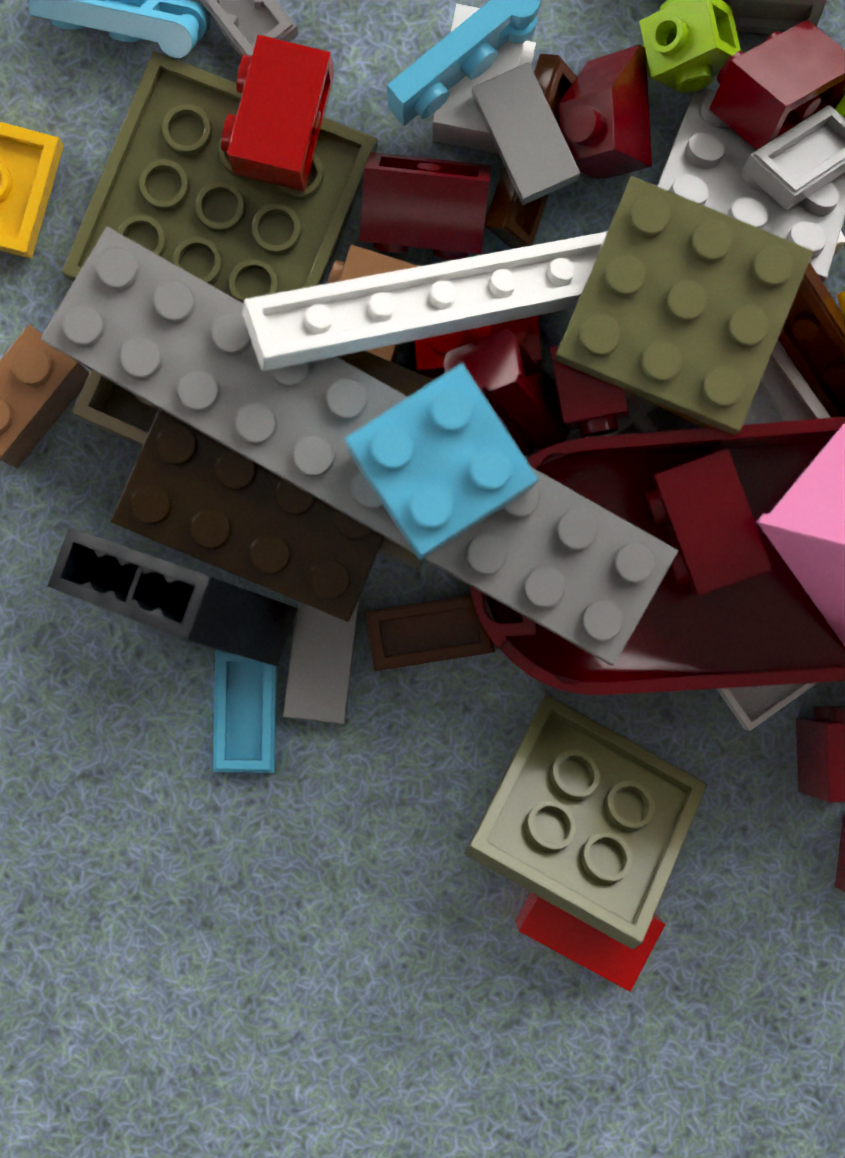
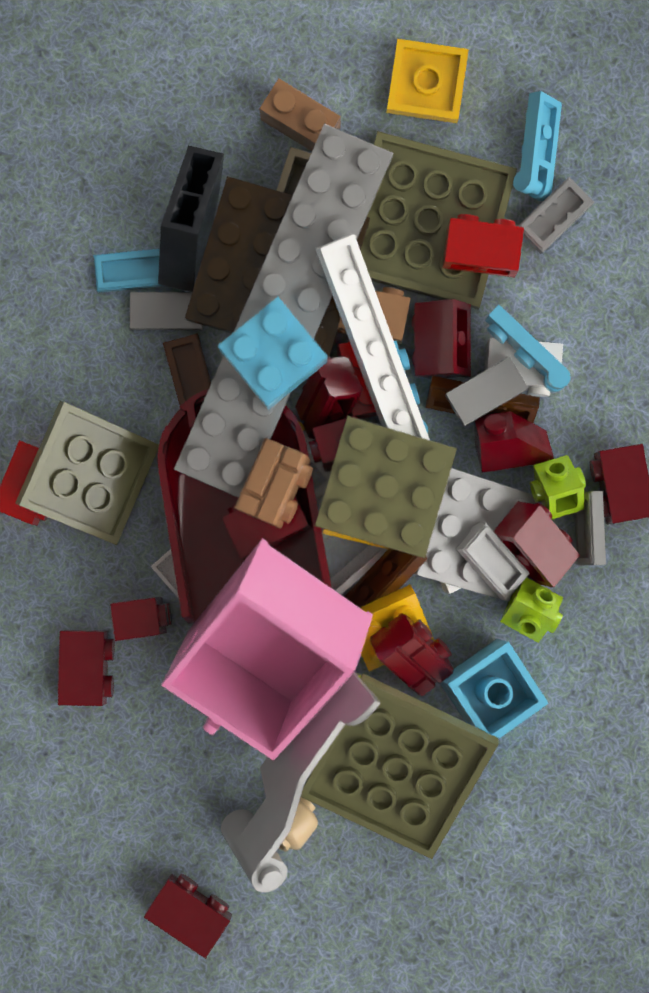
camera: 85 degrees right, 0 degrees up
(660, 495) = (274, 483): none -> medium nougat brick

